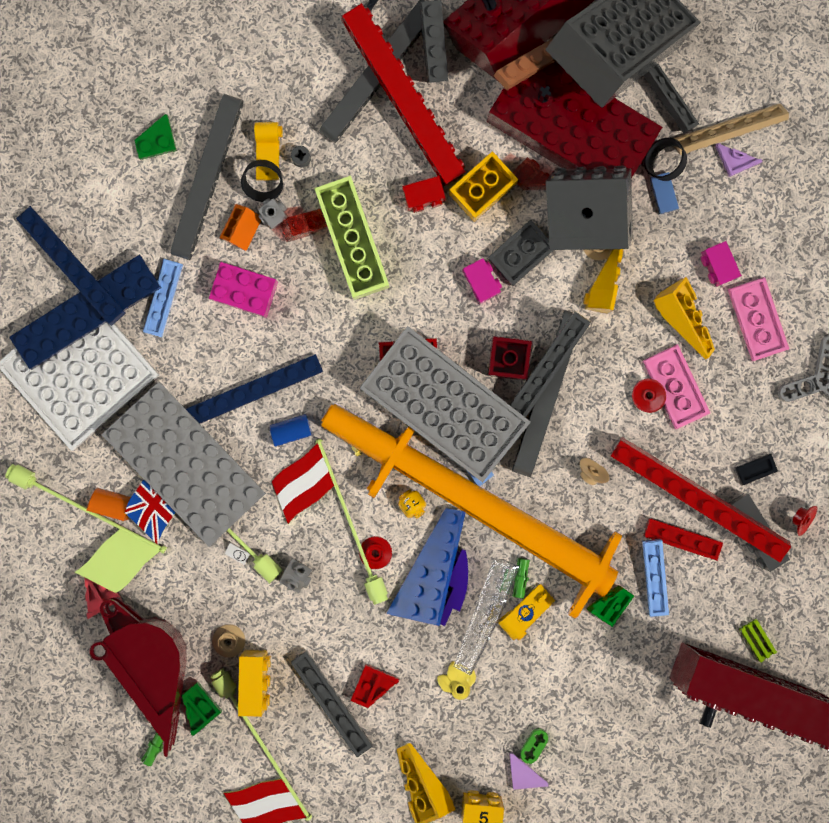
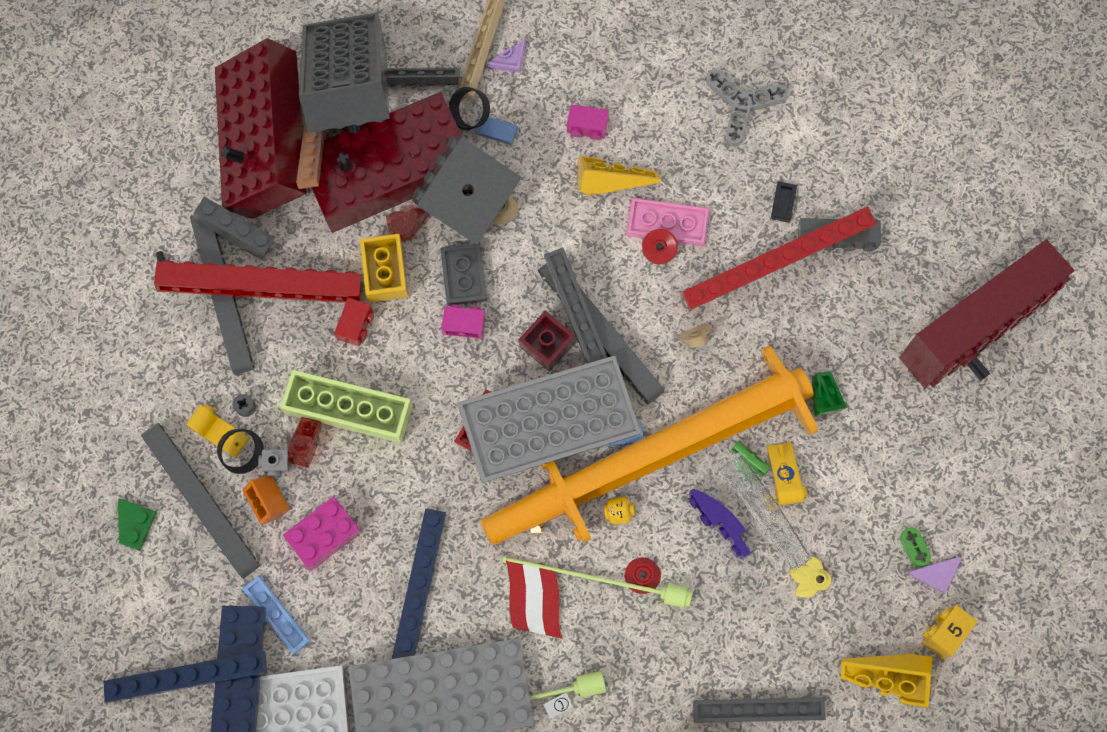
camera: 50 degrees left, 15 degrees down
(290, 430) = (478, 576): blue brick -> none
(296, 576) = (615, 661): light grey brick -> none
(372, 686) = (765, 660): red wing -> none
(427, 584) = (701, 543): blue wing -> none
(604, 290) = (543, 224): yellow wedge -> none
(655, 577) = (825, 342): light blue tile -> none
(683, 539) = (805, 298): red plate -> none
(758, 319) = (655, 122): bright pink tile -> none
(766, 653) = (947, 285): lime tile -> none
(804, 518) = (852, 189): red piece -> none

